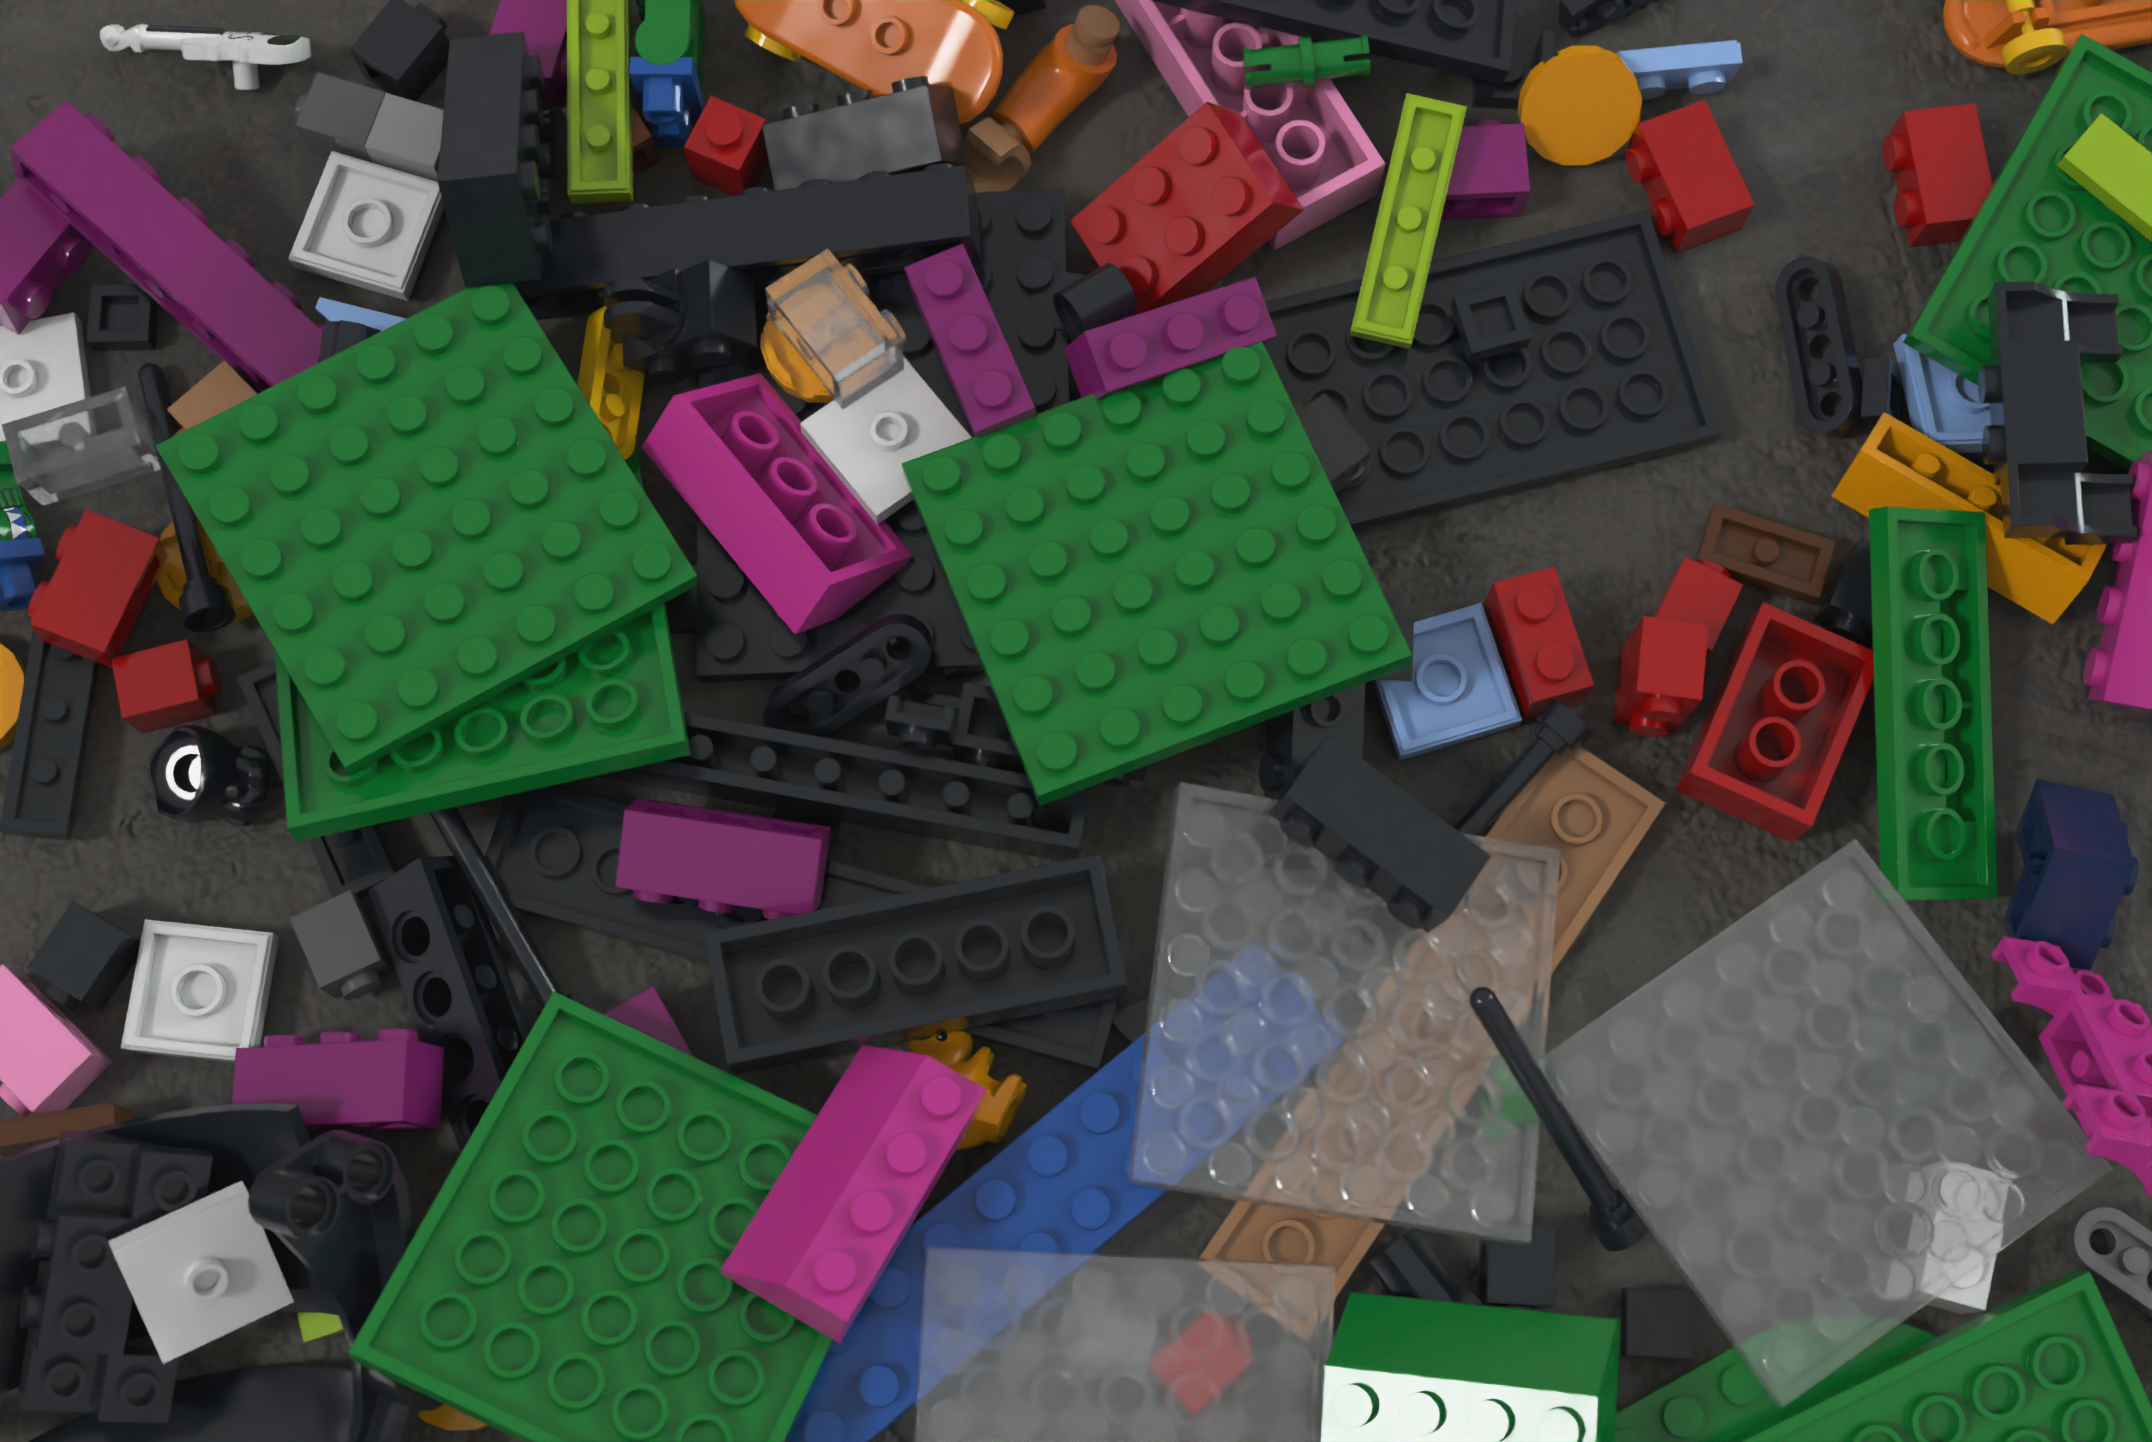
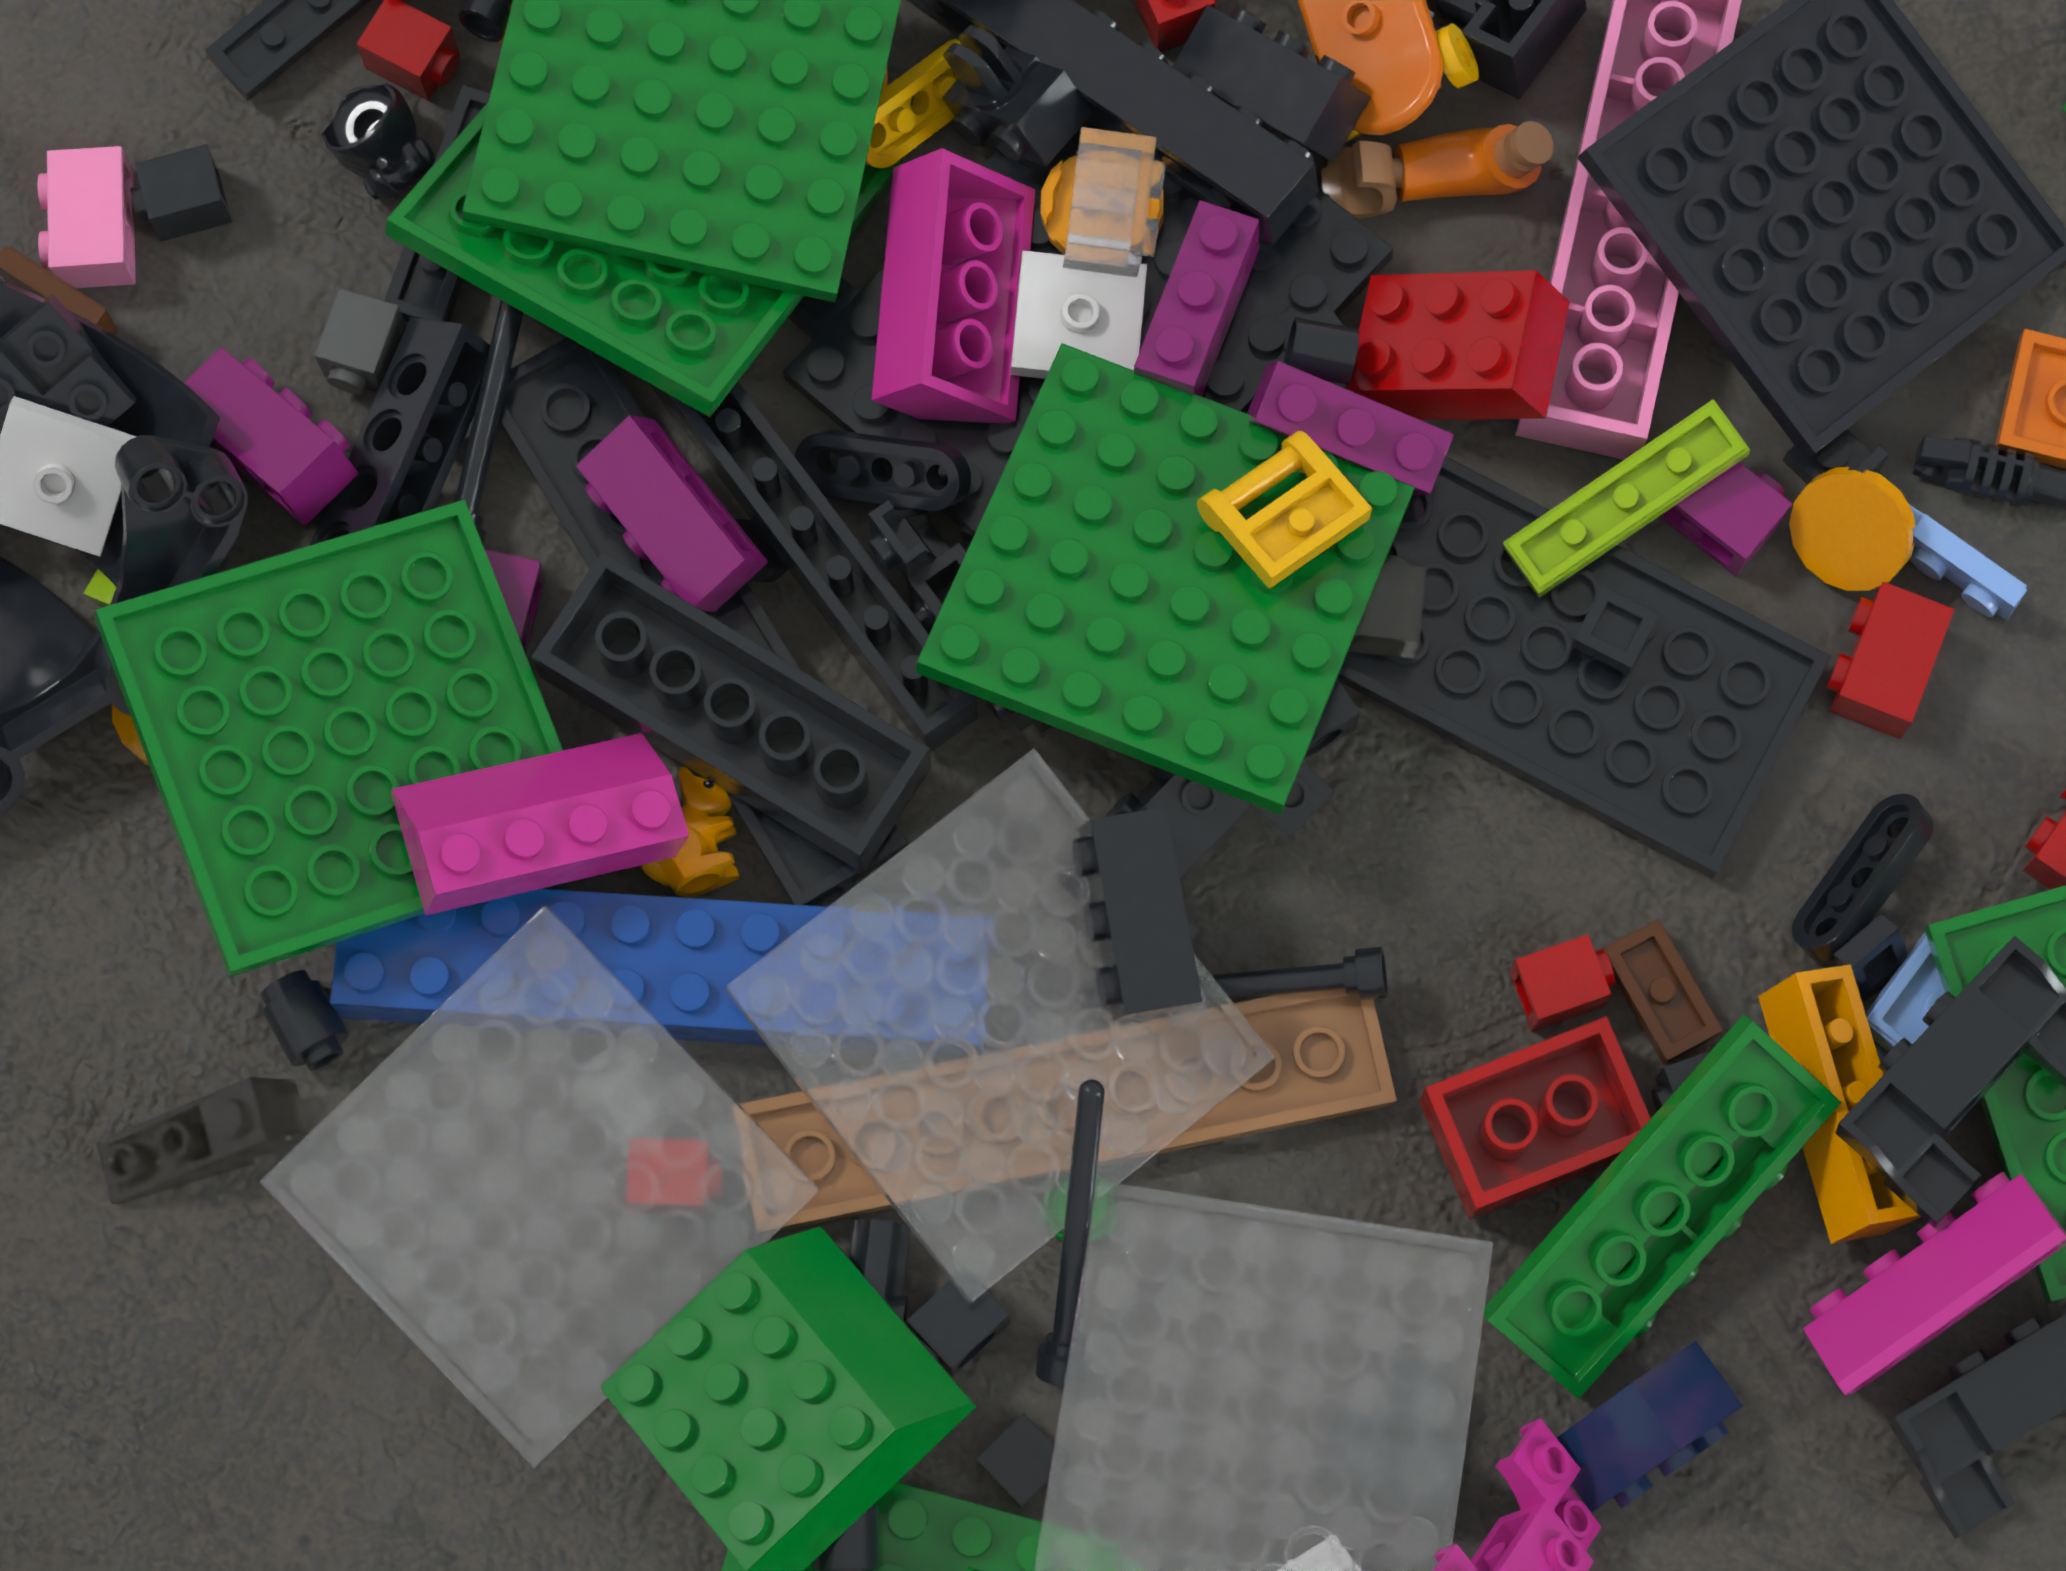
camera: 45 degrees right, 0 degrees up
(199, 990) = (236, 285): white plate -> none
(1216, 438) = (1295, 524): none -> yellow plate
(1306, 62) = (1656, 308): green pin -> none
(1454, 689) = (1324, 871): light blue plate -> none
(1537, 642) = (1418, 898): red brick -> none
(1660, 675) = (1478, 1002): red brick -> none

